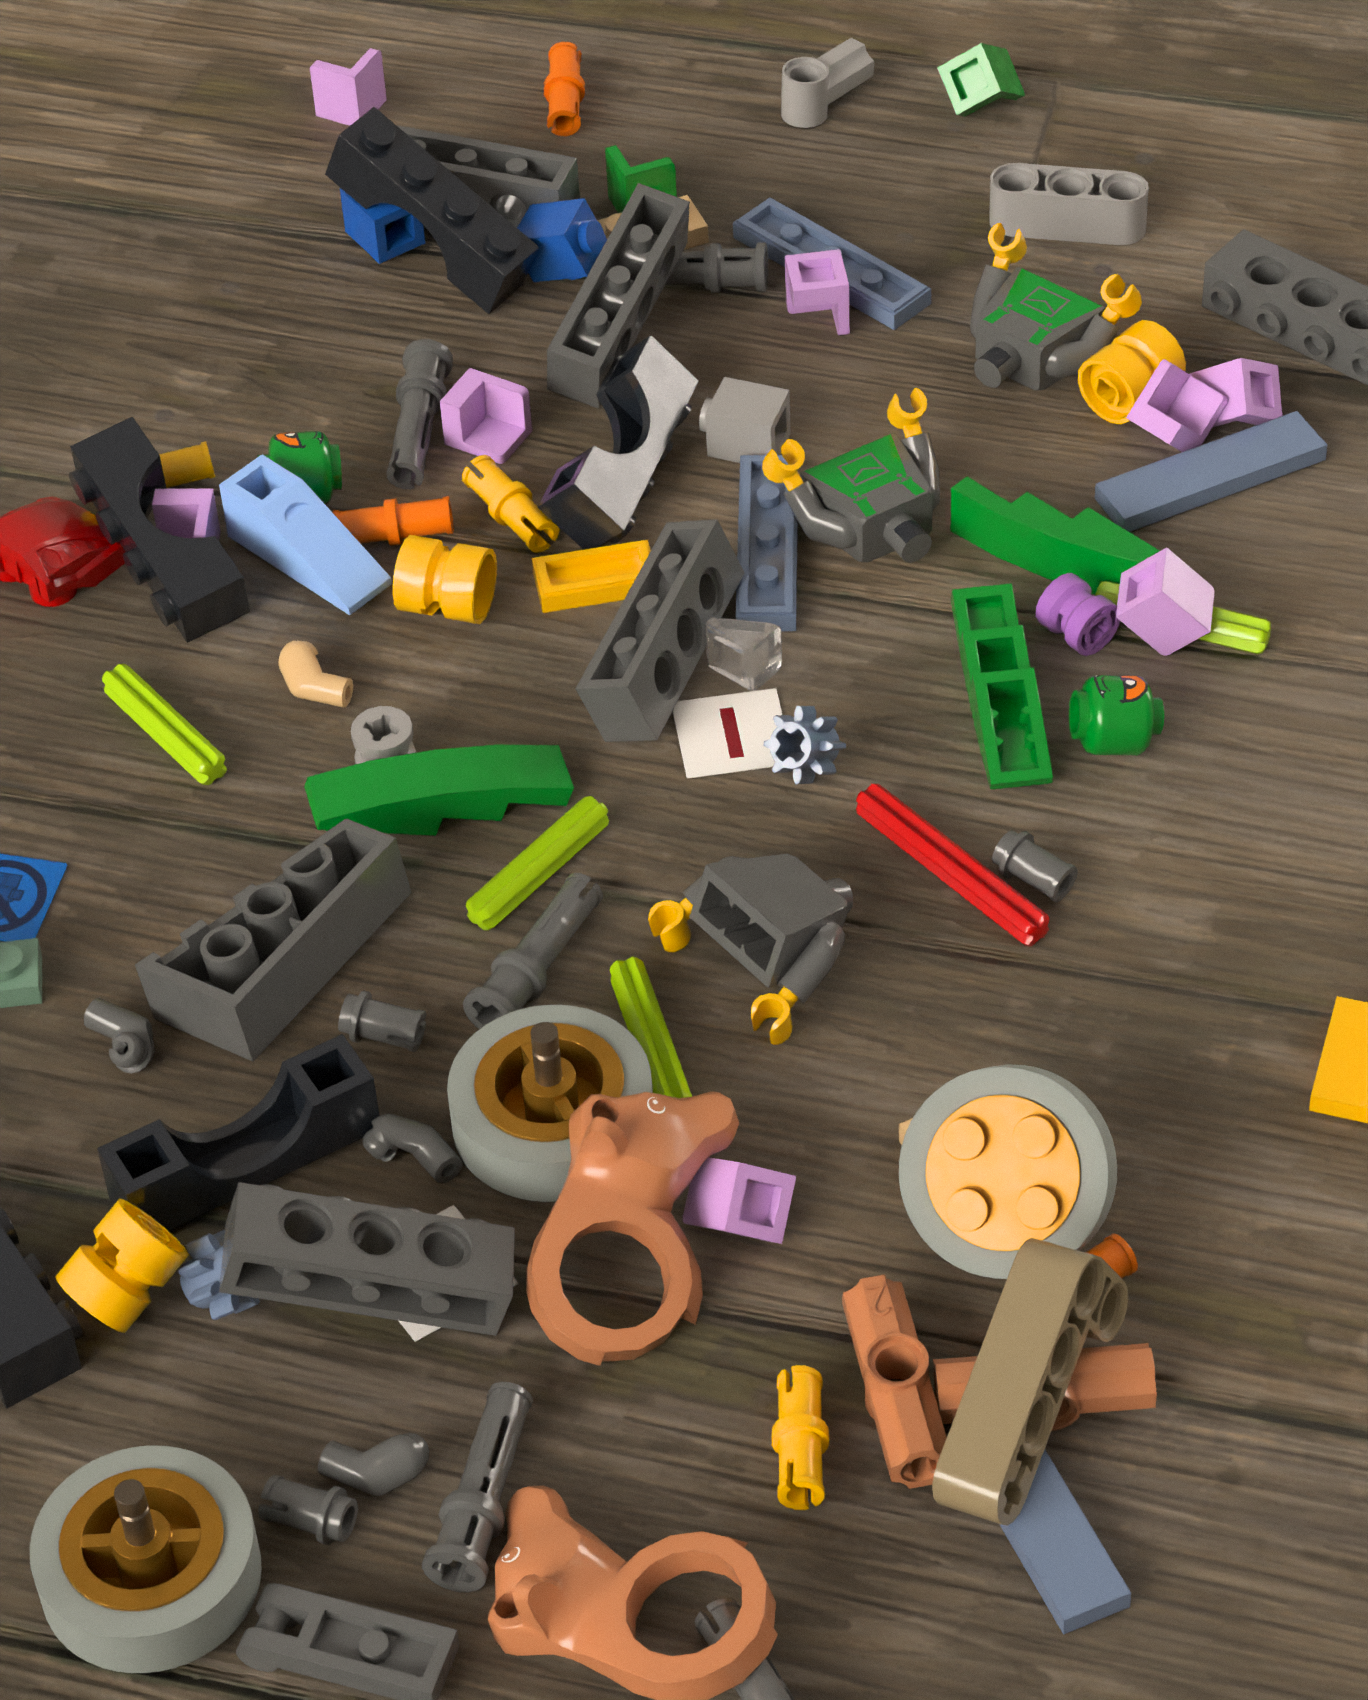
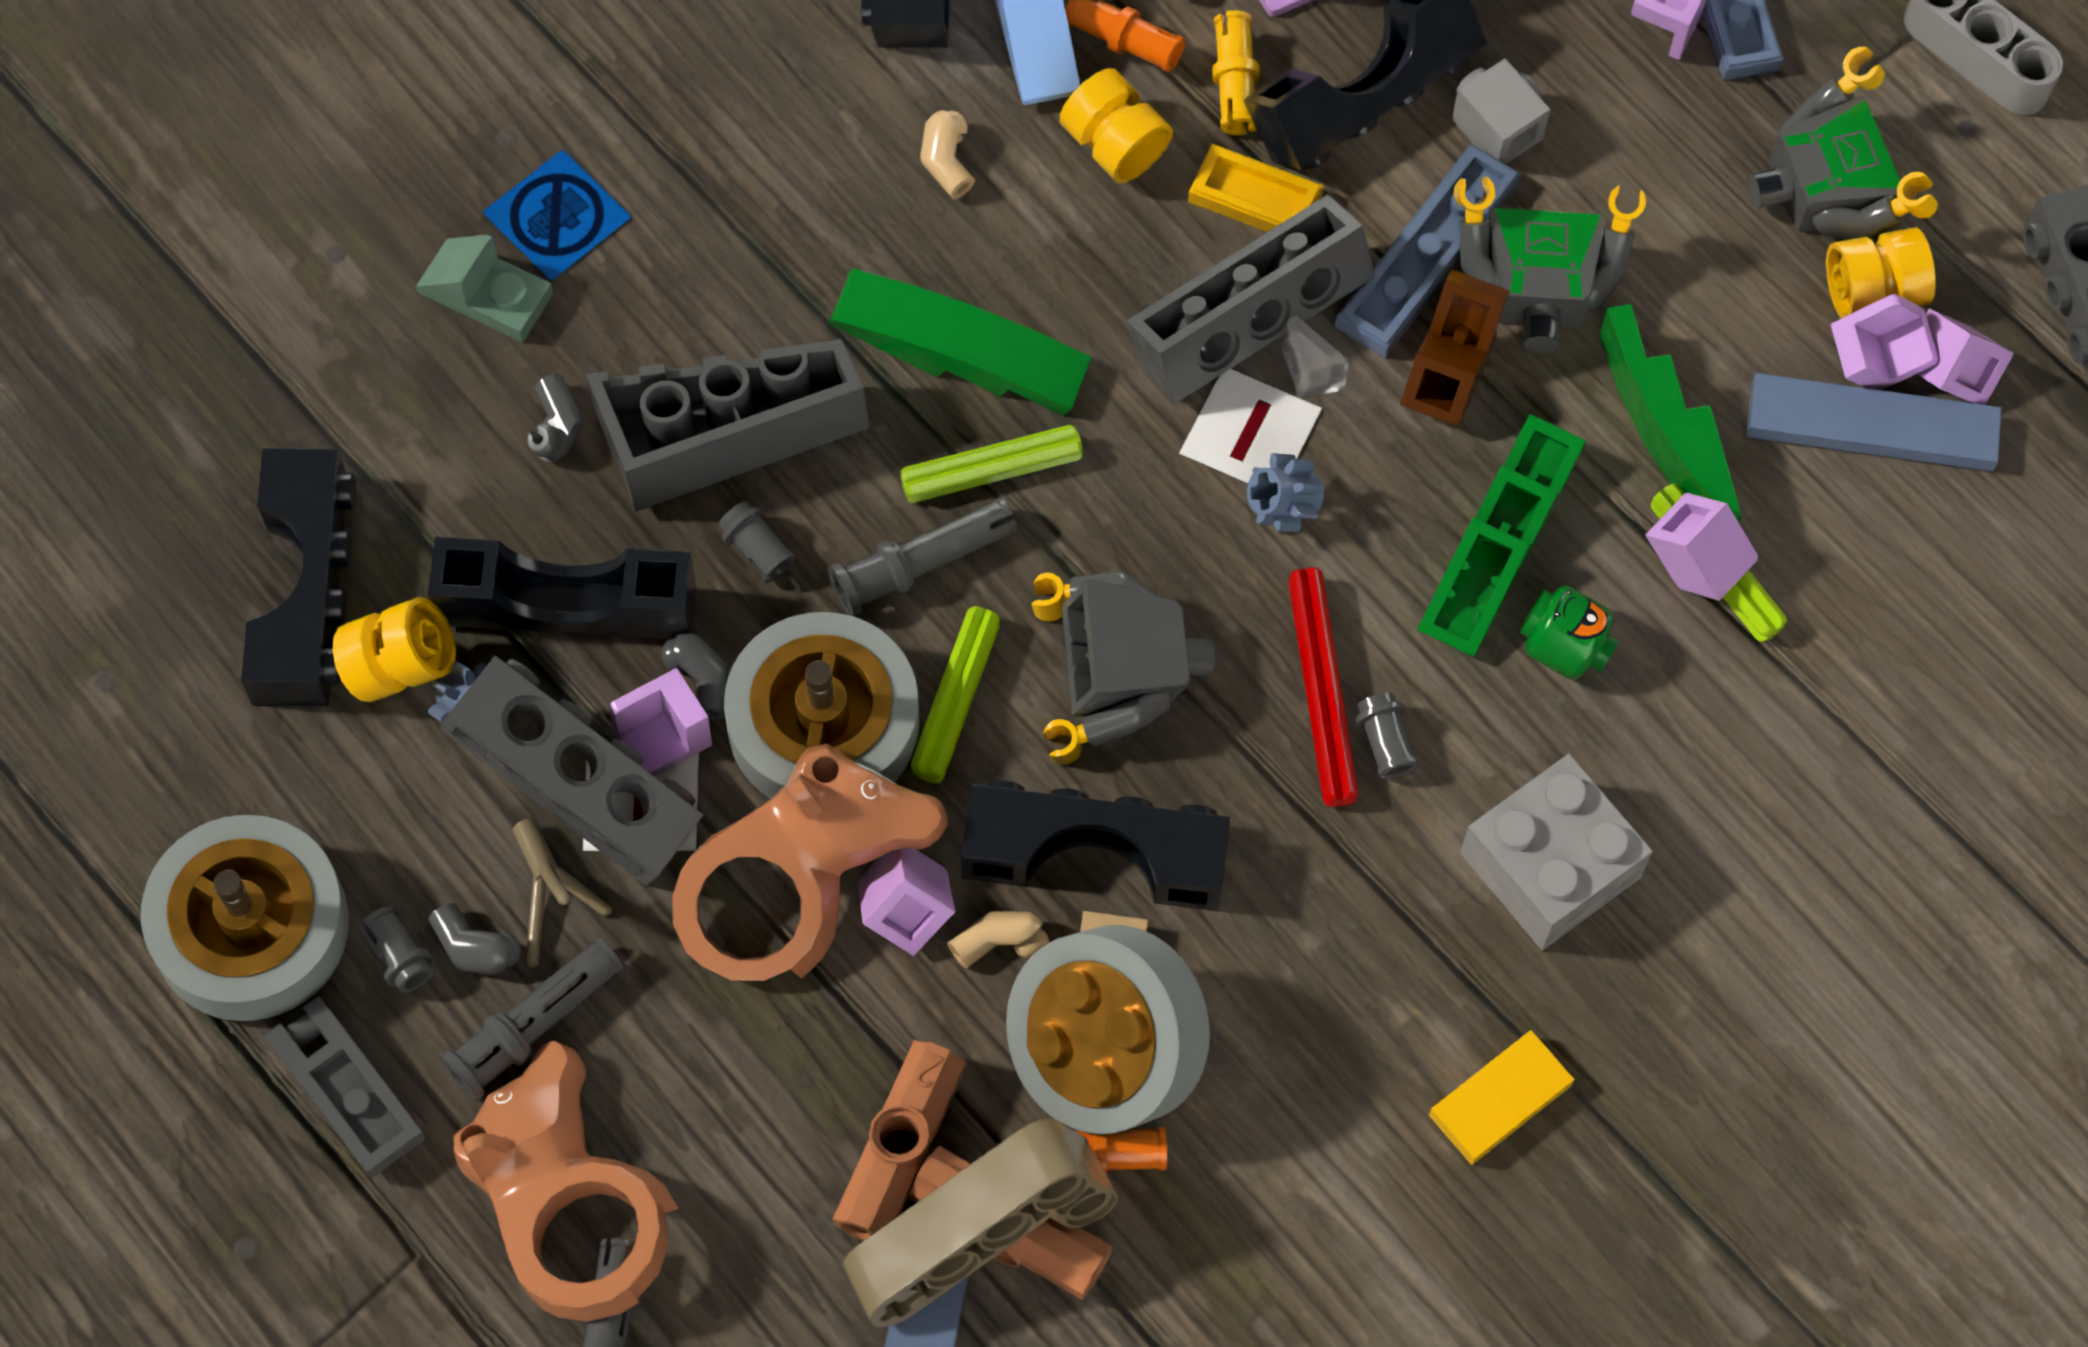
camera: 30 degrees right, 20 degrees up
(164, 724) = (794, 126): lime axle -> none
(381, 734) = (950, 278): light grey wheel -> none
(396, 1370) = (548, 873): none -> dark tan plant
(416, 1177) = (662, 722): none -> lavender panel
(800, 1437) = (793, 1139): yellow pin -> none
(840, 1178) = (996, 929): none -> tan arm
(851, 576) = (1455, 348): none -> reddish brown brick
(927, 1038) = (1018, 830): none -> black arch
(1082, 617) = (1624, 504): medium lavender wheel -> none
(1243, 862) = (1555, 851): none -> light grey brick

